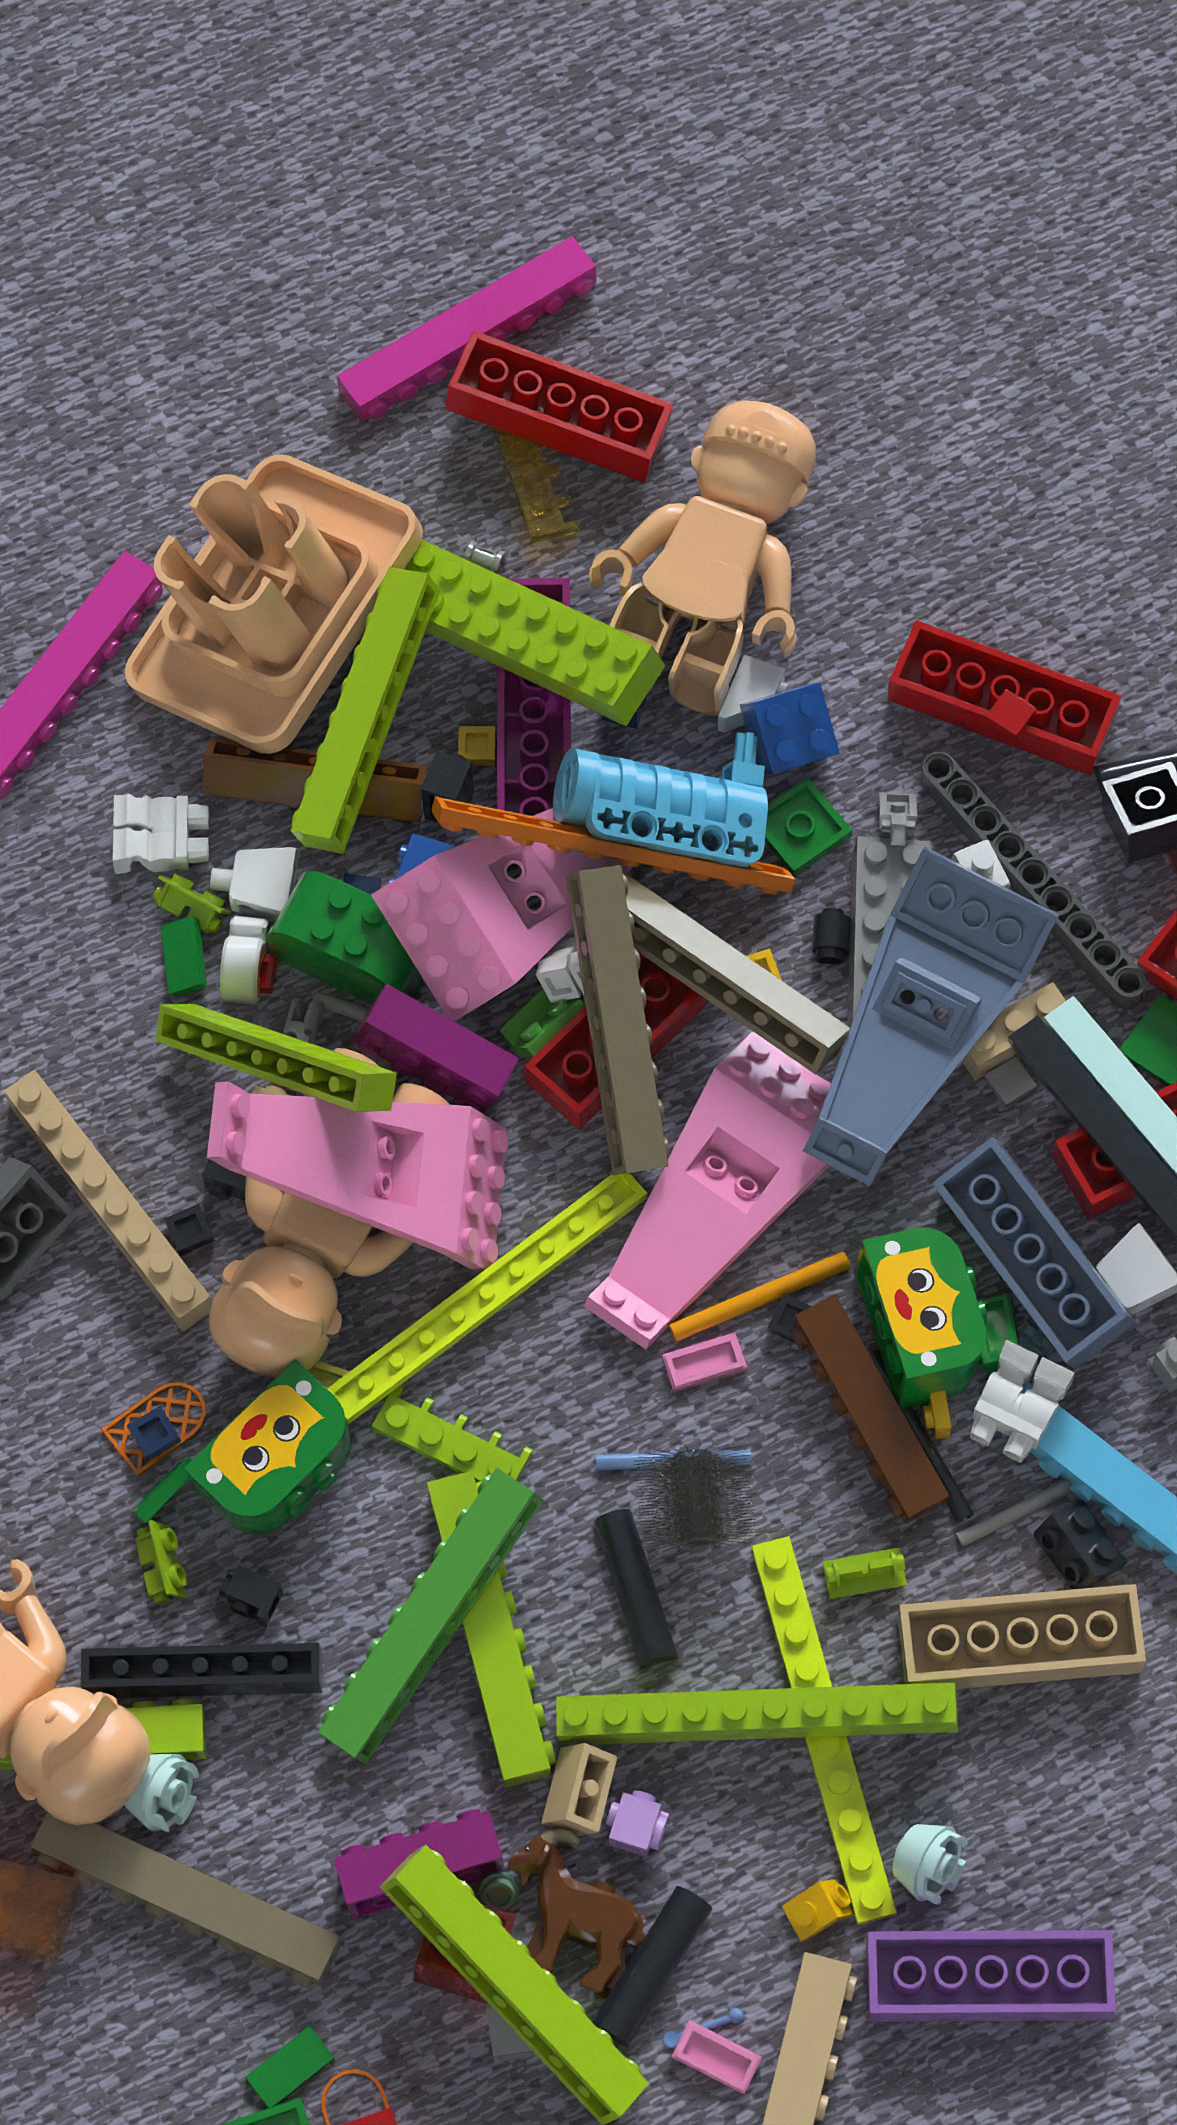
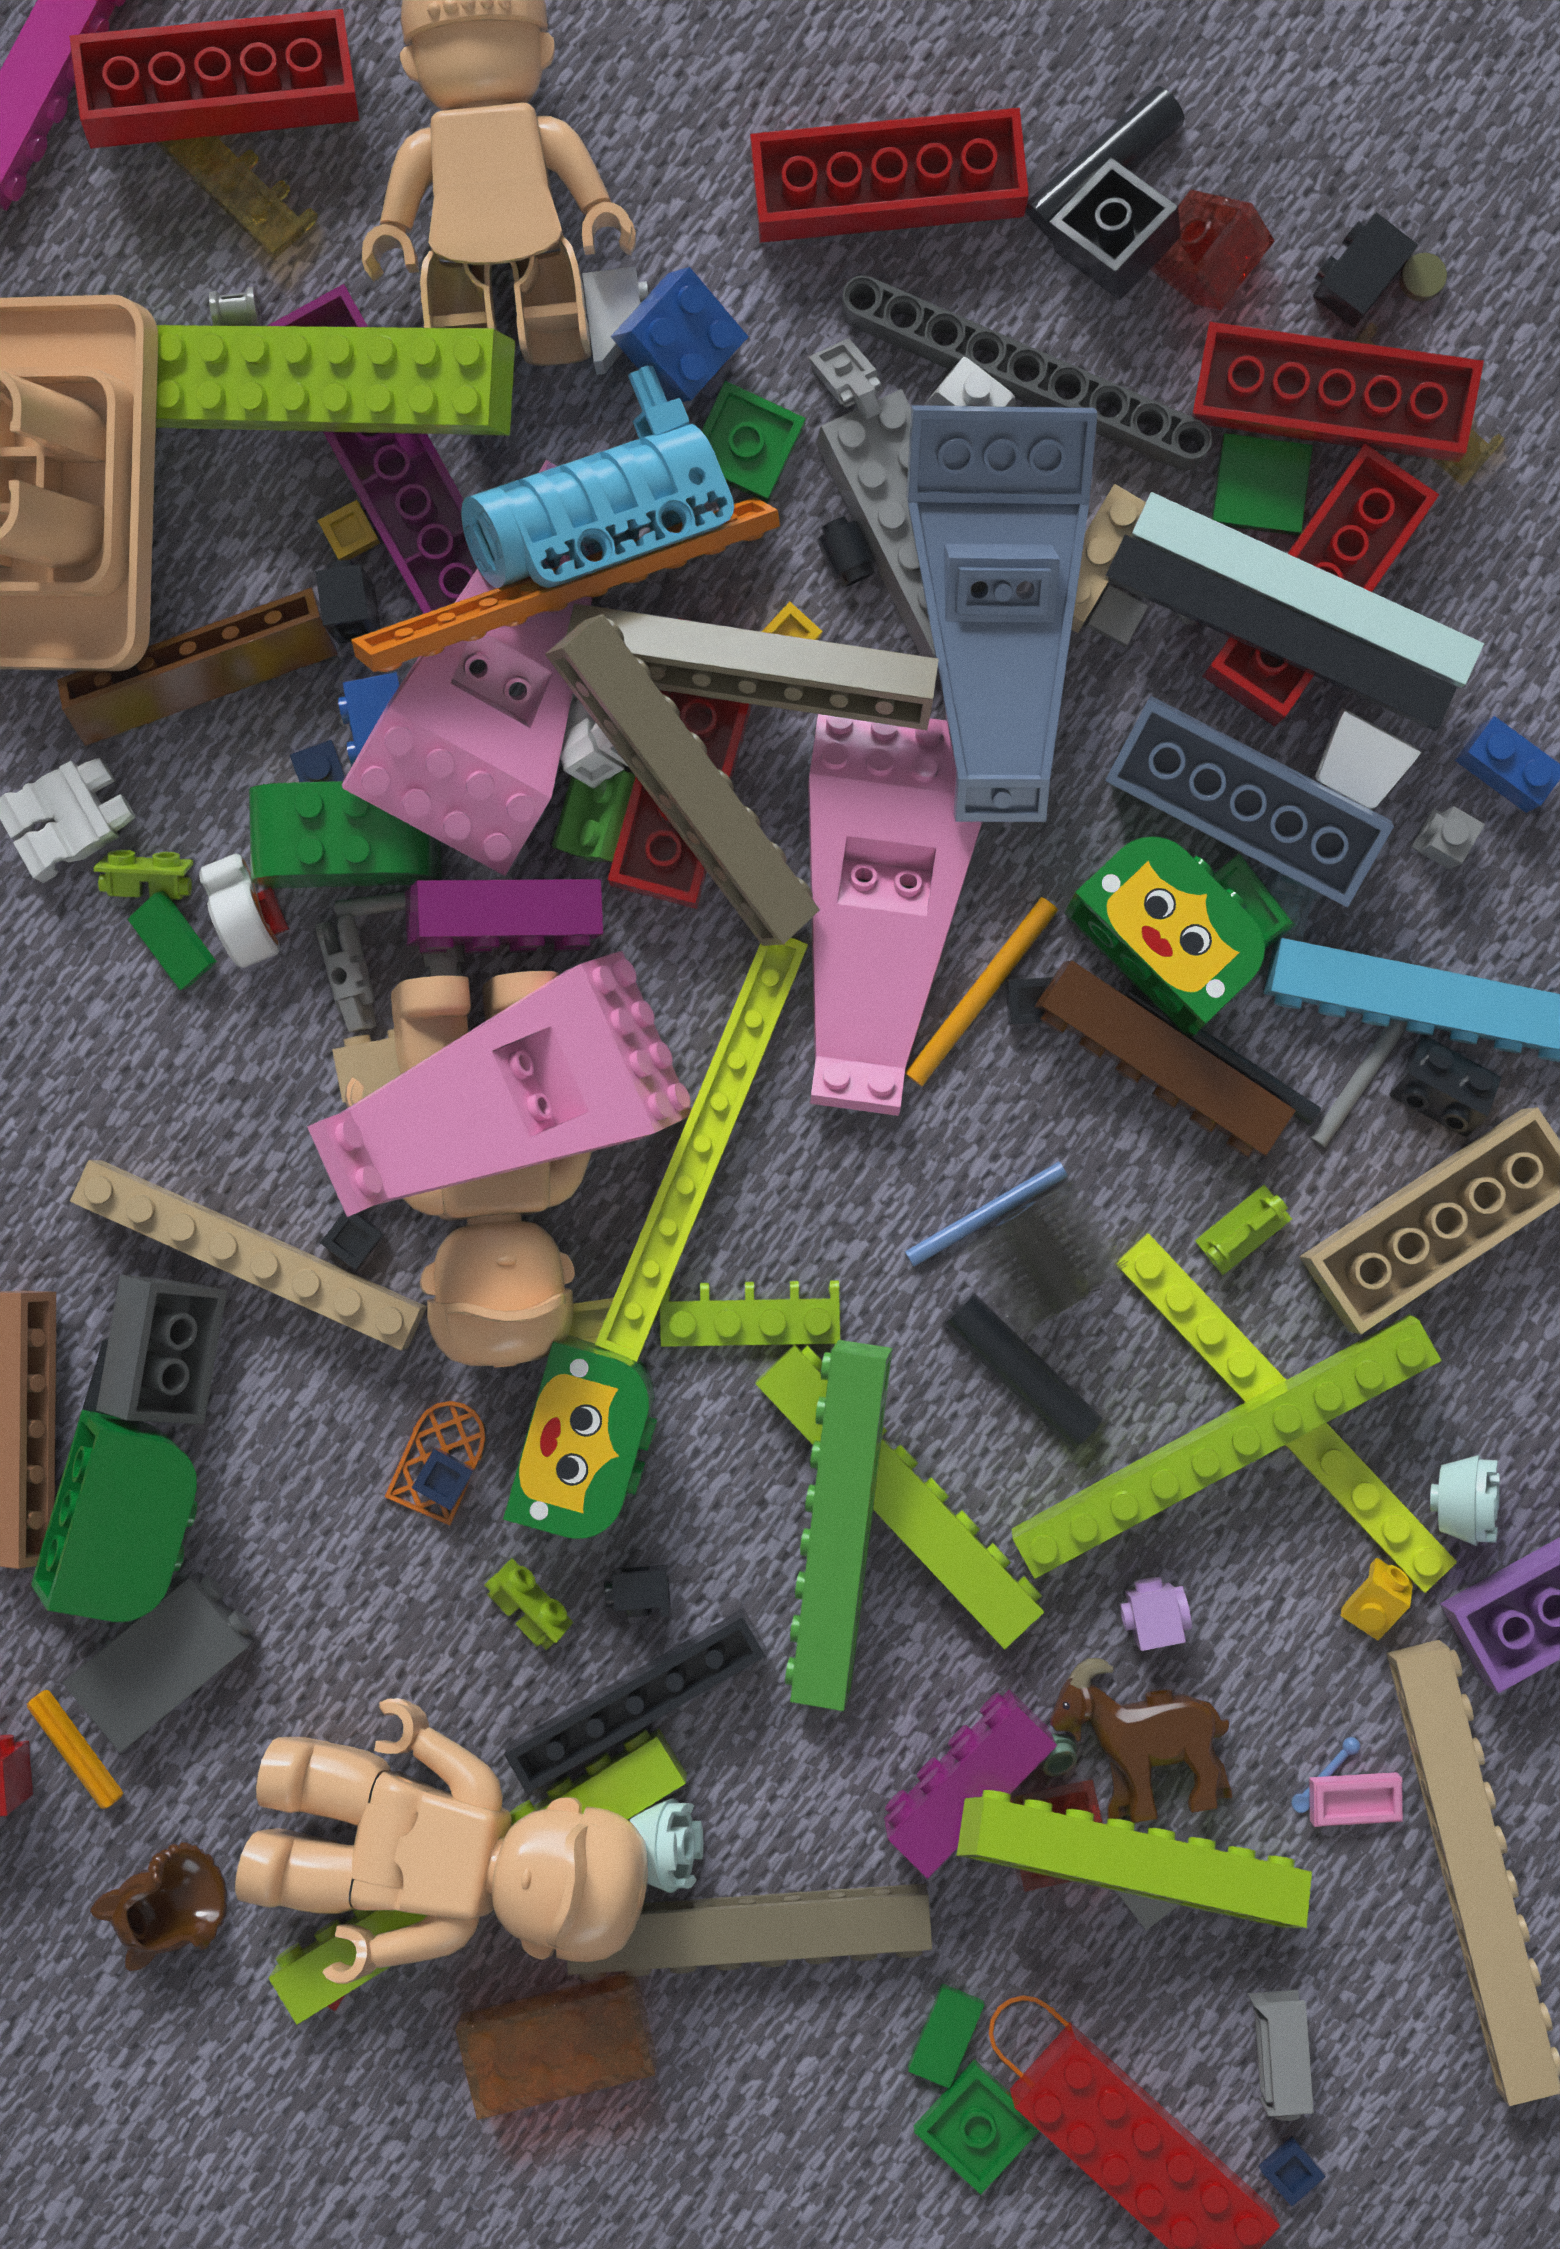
camera: 30 degrees left, 20 degrees up
(161, 1492) = (488, 1531): green tile -> none
(258, 881) = (204, 813): white torso -> none
(276, 1057) = (348, 1027): lime brick -> none
(365, 710) = (209, 563): lime brick -> none
(579, 1789) = (1083, 1616): tan brick -> none
(652, 1965) = (1248, 1748): black brick -> none
(704, 1362) = (962, 1093): bright pink tile -> none
(937, 1415) = (1234, 1026): yellow plate -> none
(1010, 714) = (914, 194): red tile -> none
(1018, 1414) = (1329, 986): white hips -> none

